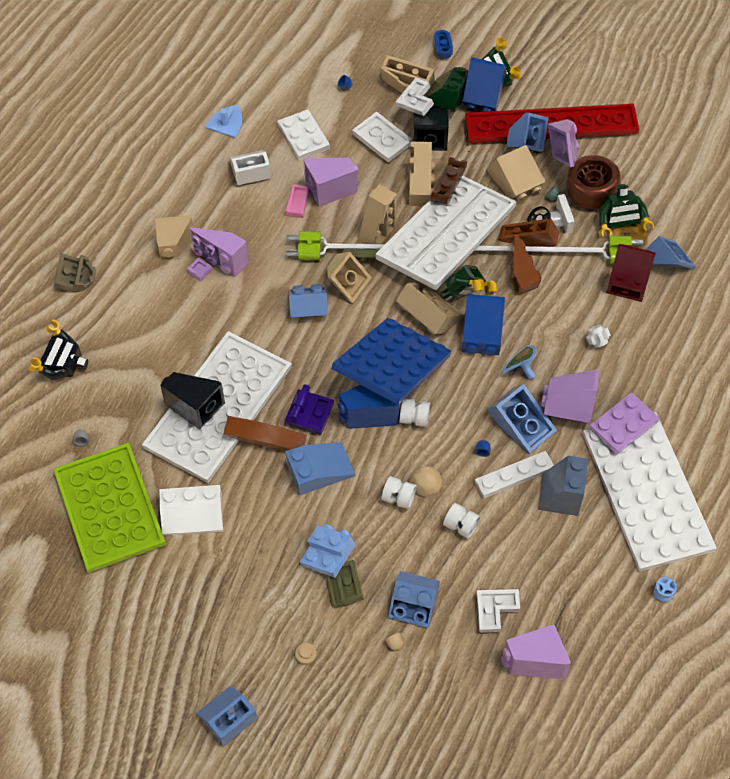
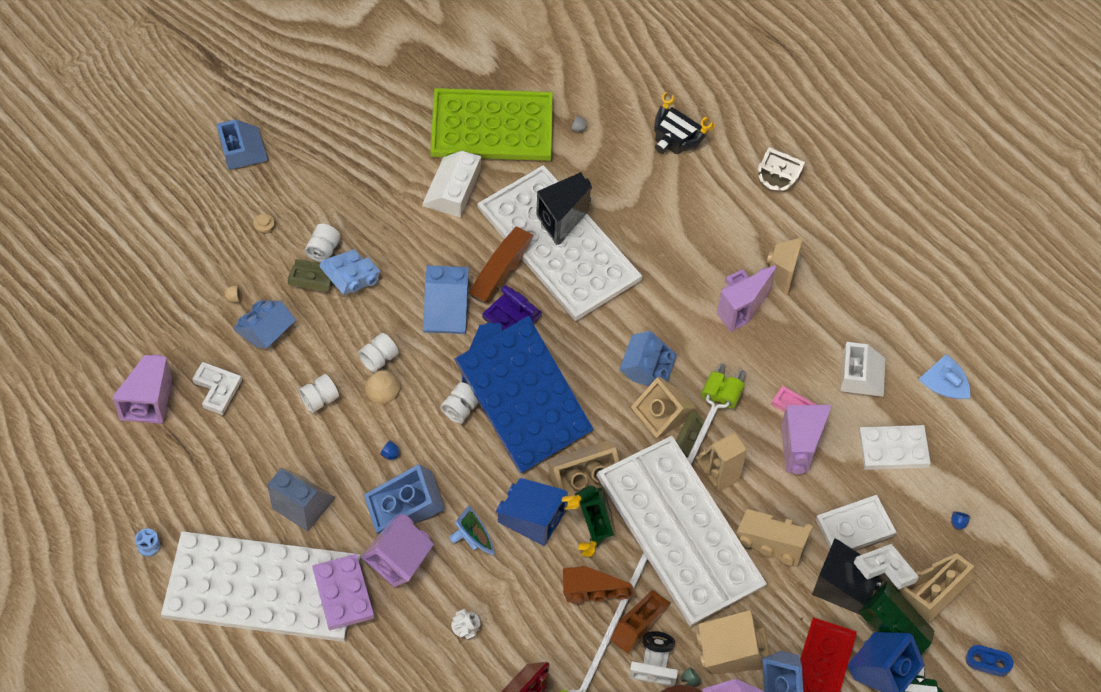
camera: 110 degrees right, 0 degrees up
(308, 587) = (322, 242): none -> white wheel
(449, 181) = (751, 562): reddish brown plate -> none
(513, 474) = (347, 469): white plate -> none

